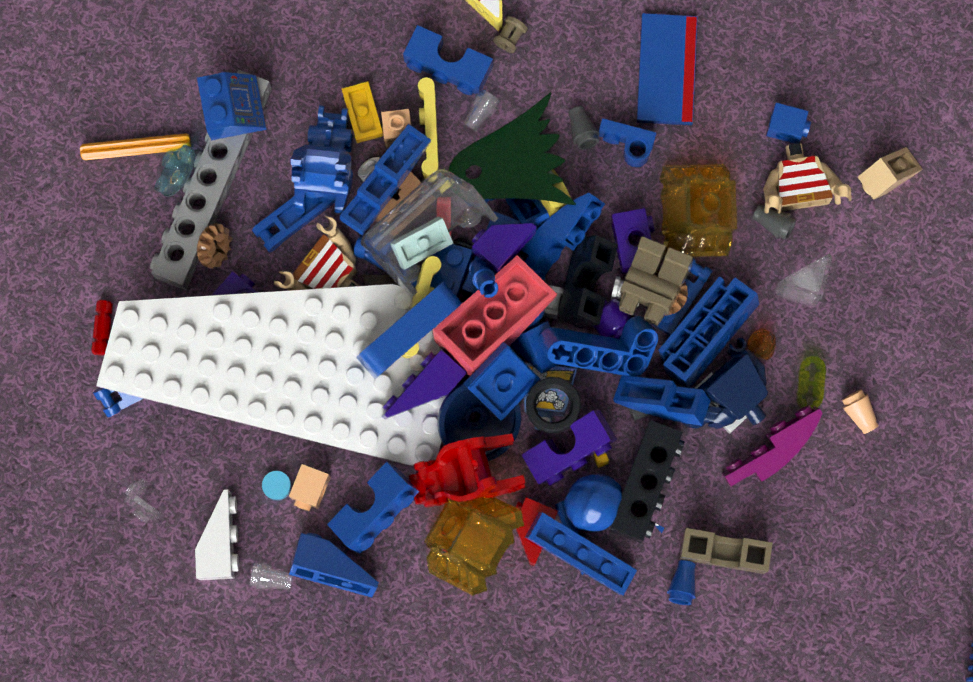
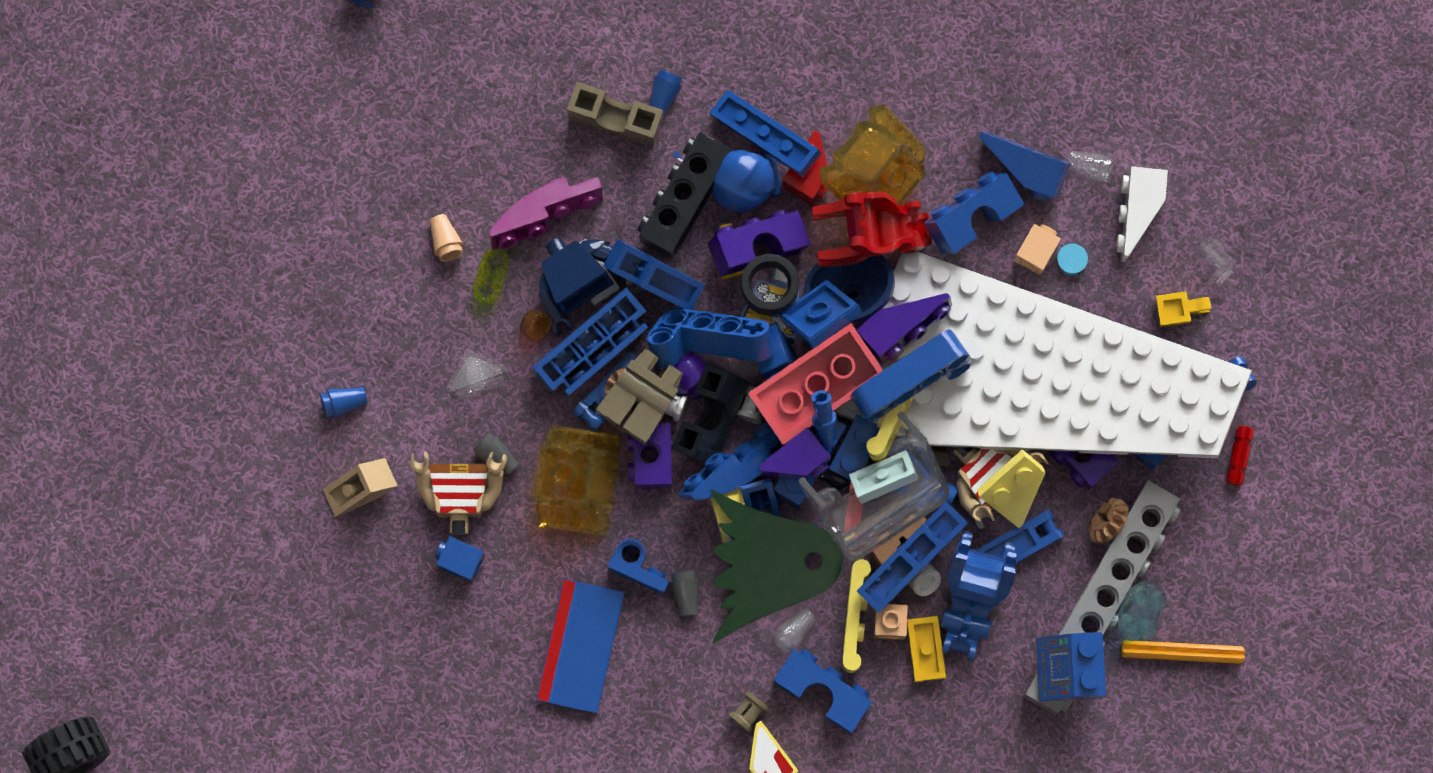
camera: 175 degrees left, 0 degrees up
(174, 452) = (1176, 308): none -> yellow plate
(302, 252) = (1014, 487): none -> light yellow wing
(922, 247) = (341, 401): none -> blue cone

